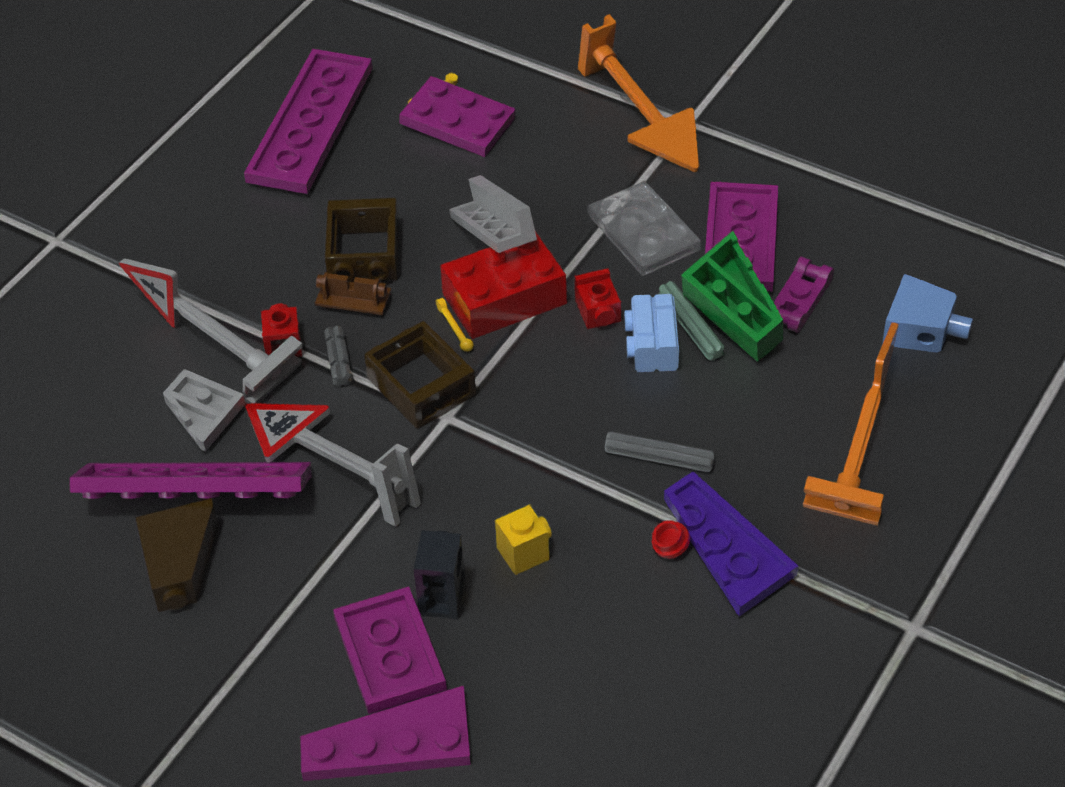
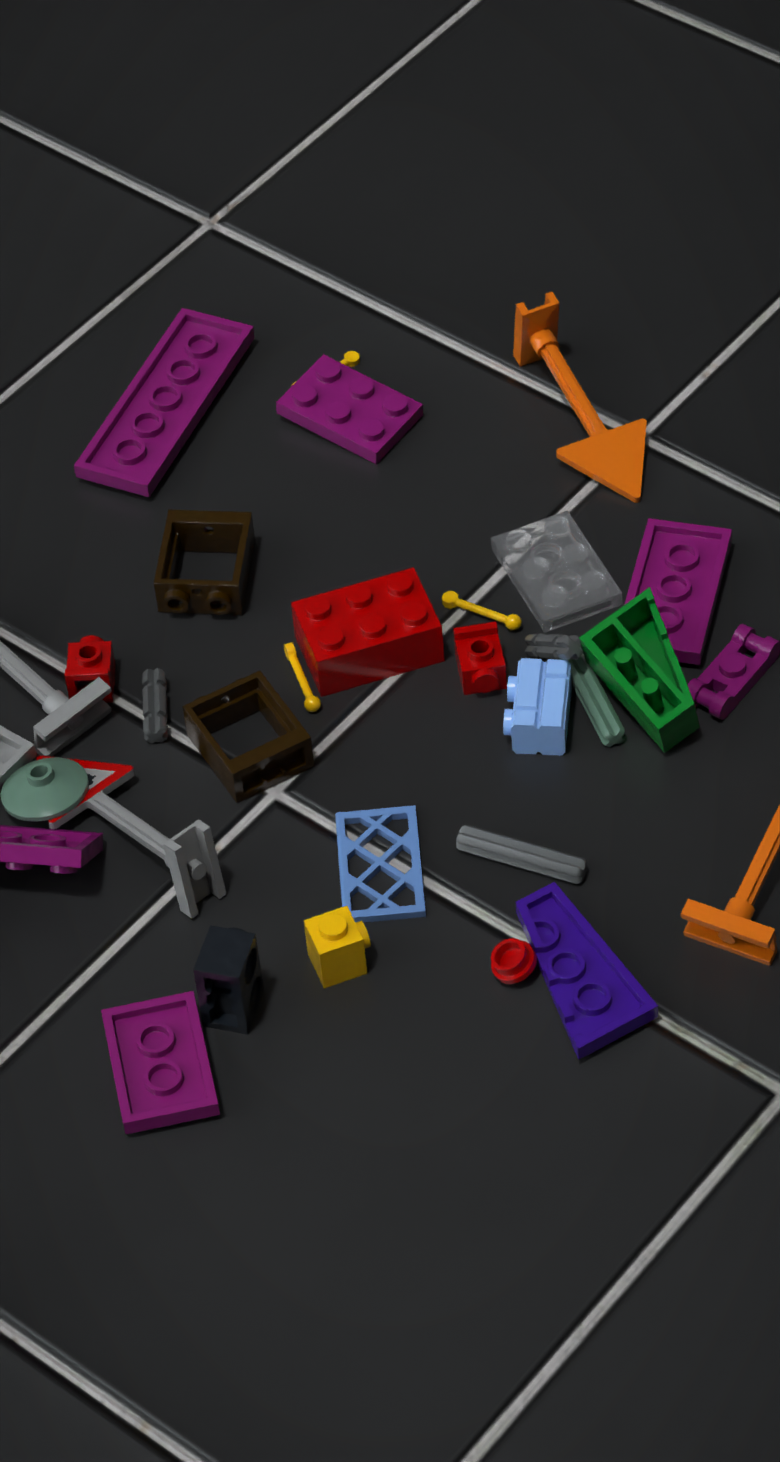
camera: 10 degrees right, 0 degrees up
(257, 430) = (44, 789): none -> sand green dish
(360, 296) = (185, 632): reddish brown hinge -> none
(398, 739) = (153, 1166): magenta wing -> none
(495, 216) = (366, 546): light grey fence -> none
(534, 434) = (376, 820): none -> medium blue window
(564, 256) = (451, 600): none -> yellow hinge
(656, 284) = (553, 646): none -> dark grey axle

